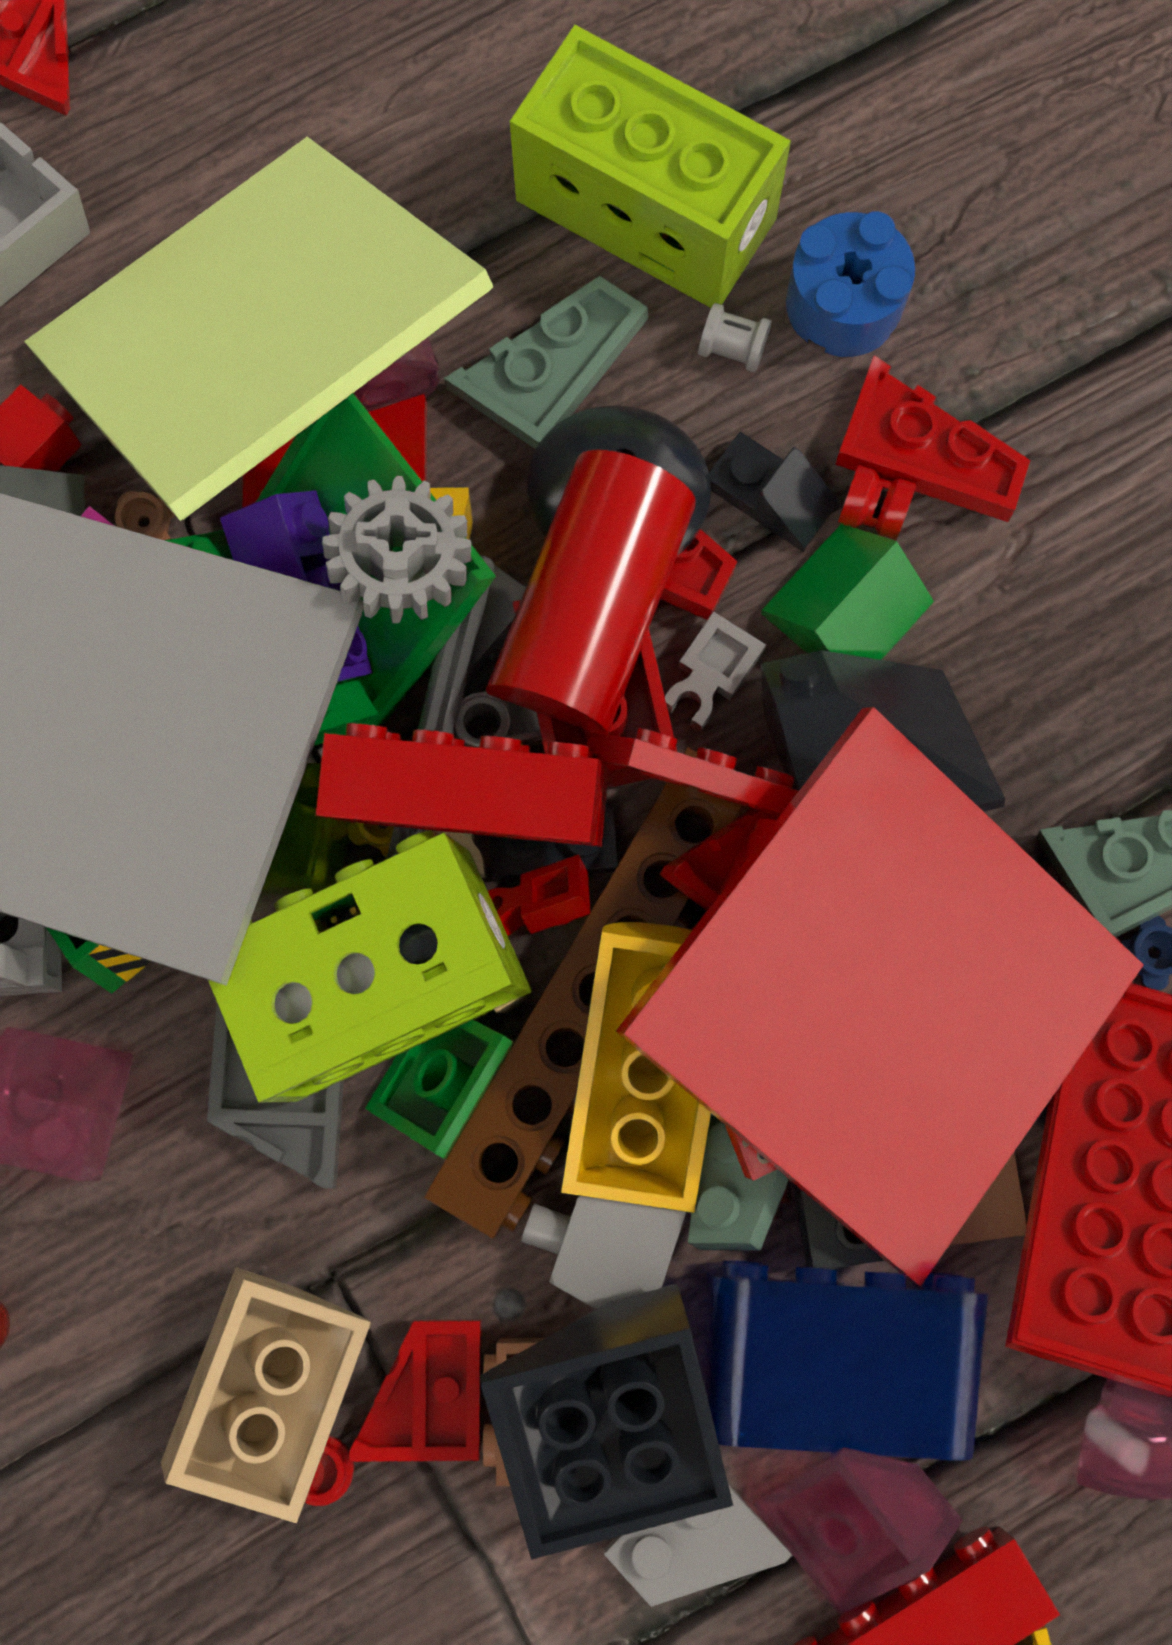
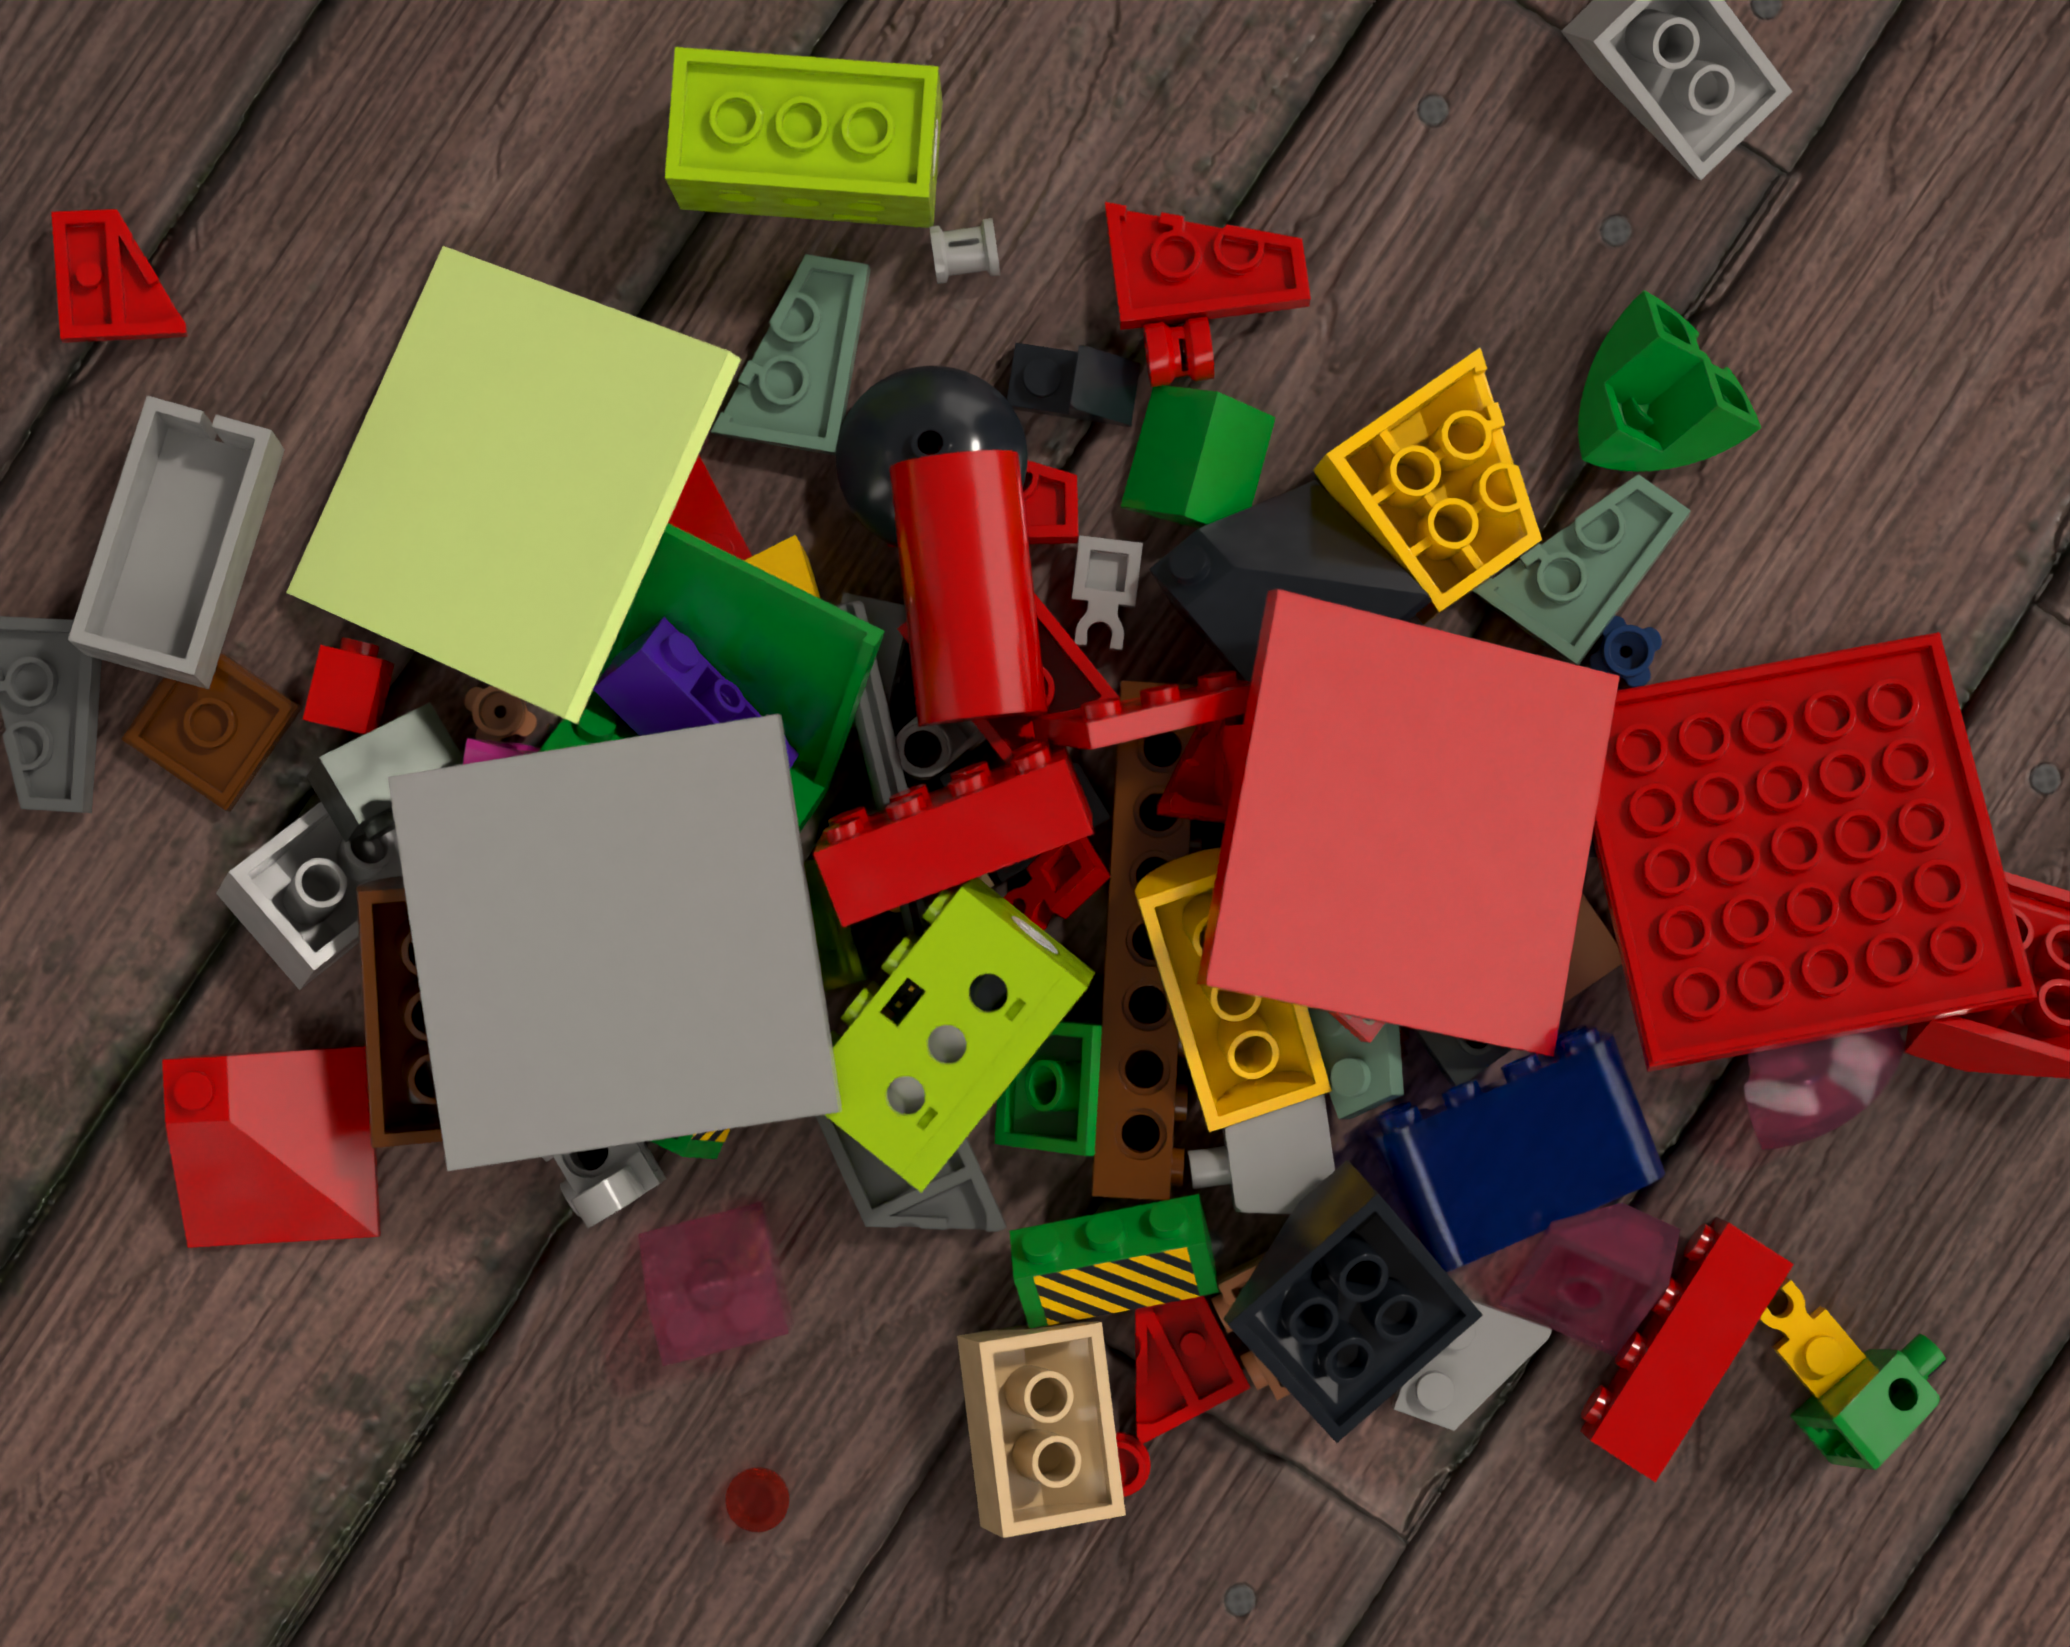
camera: 30 degrees left, 10 degrees up
(389, 519) = (767, 669): light grey gear -> none
(411, 1270) = (1113, 1261): none -> green brick
(850, 282) = (1051, 108): blue brick -> none
(1054, 717) = (1438, 485): none -> yellow wedge

